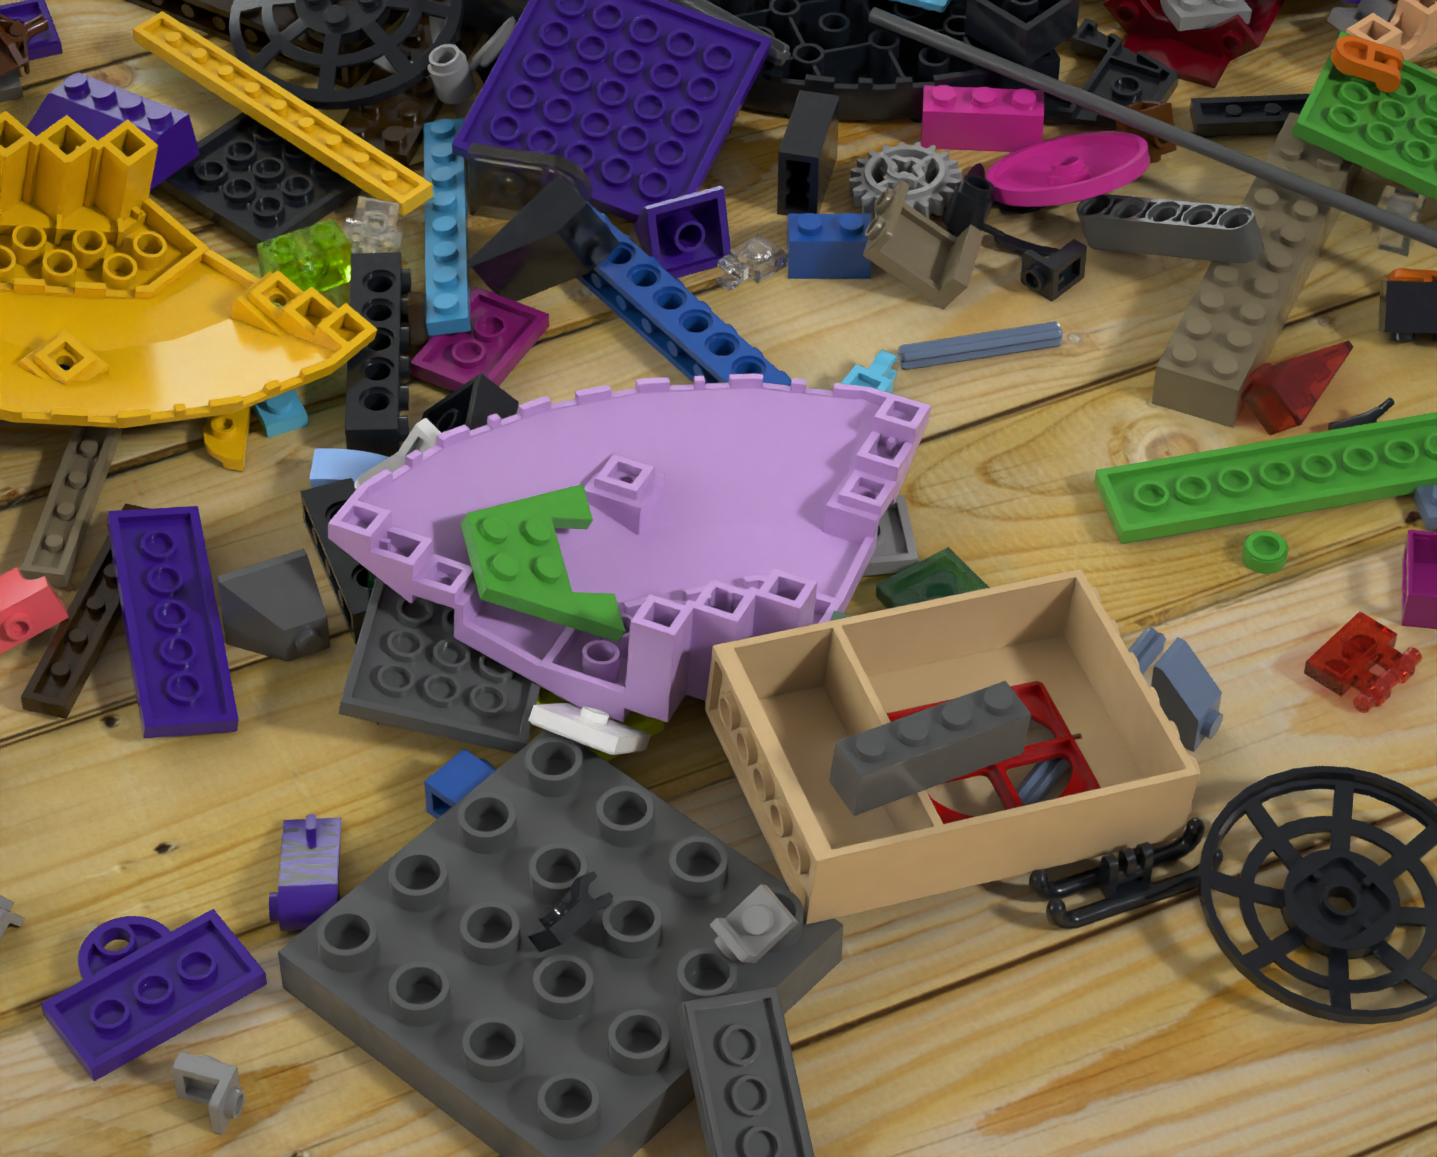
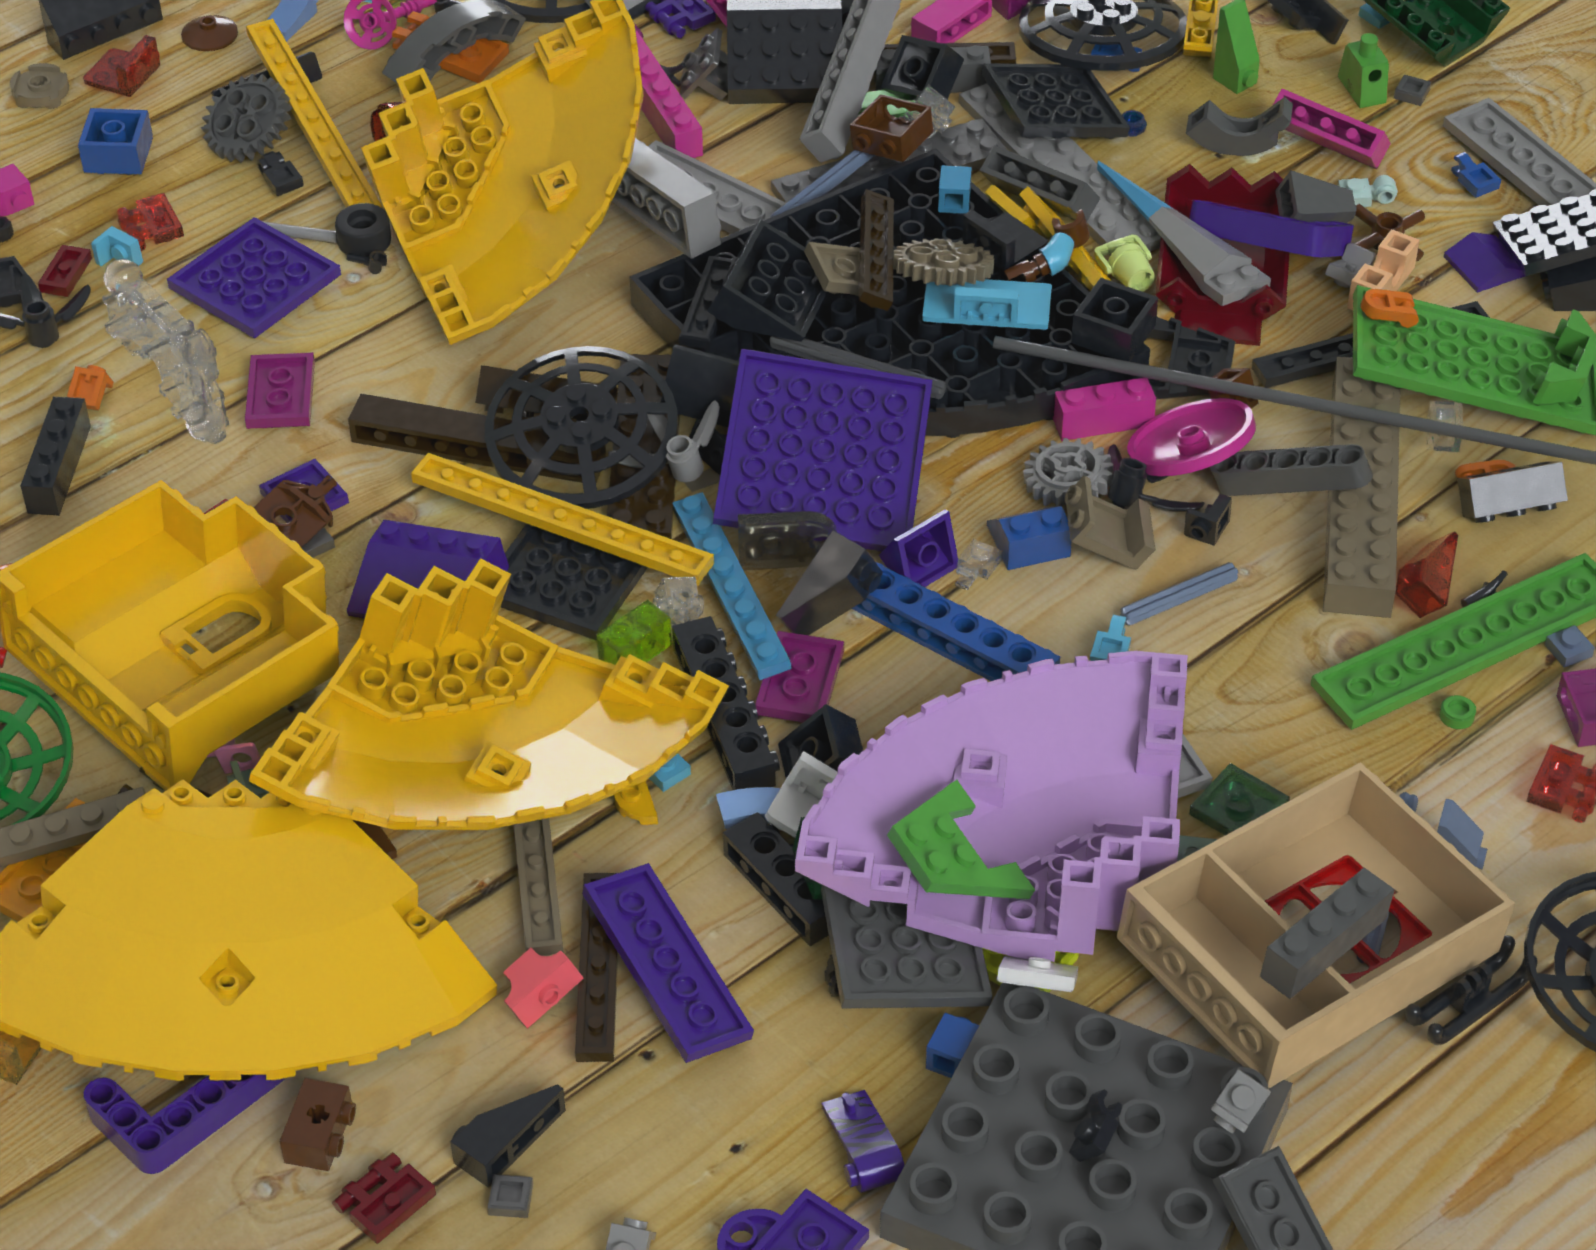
camera: 15 degrees left, 0 degrees up
(274, 608) = (747, 933): dark grey slope -> none
(417, 318) = (745, 666): dark brown tile -> none
(808, 153) = (990, 467): black brick -> none

